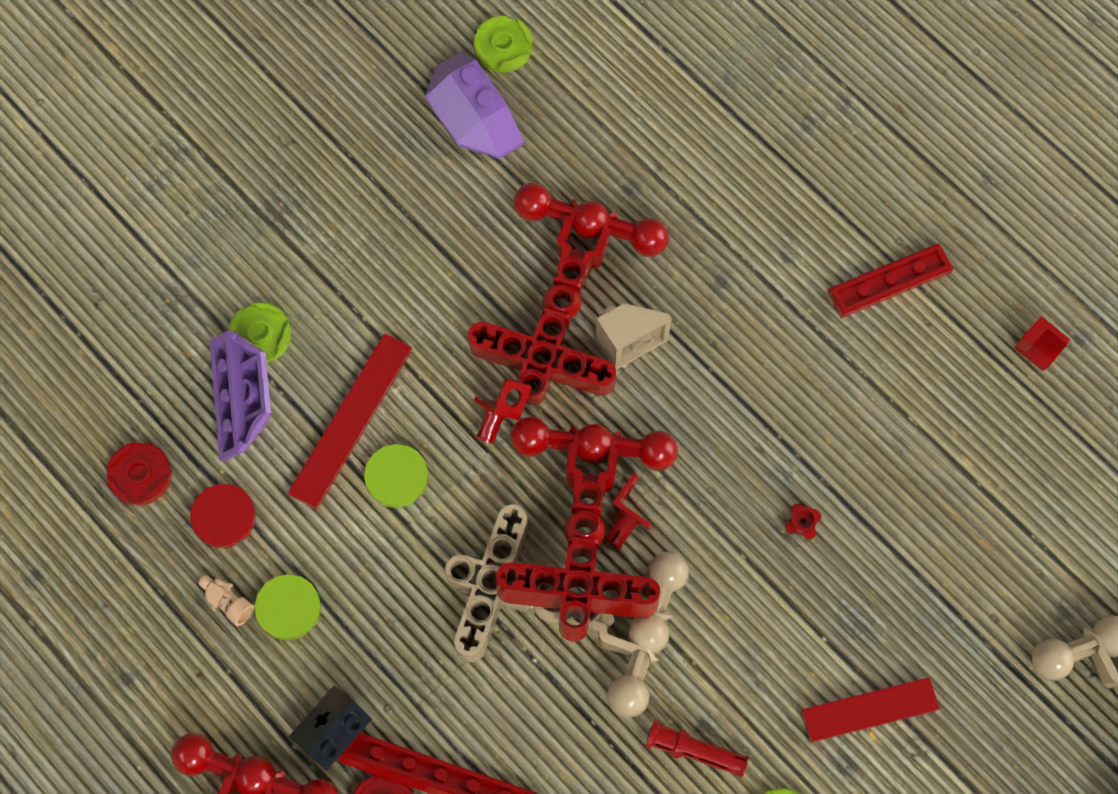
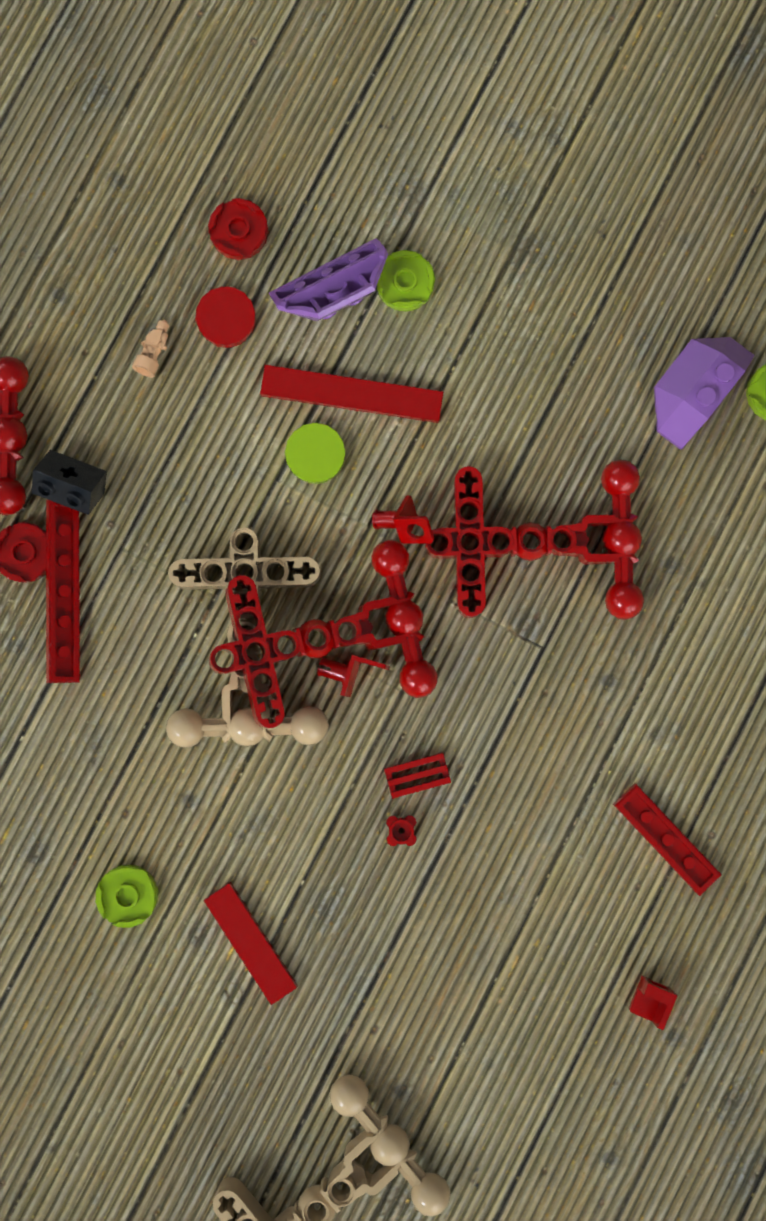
camera: 70 degrees right, 15 degrees up
(287, 607) = (165, 405): lime tile -> none
(630, 332) = (520, 614): tan slope -> none
(681, 744) = (161, 788): red pin -> none
(754, 461) = (419, 787): none -> red tile

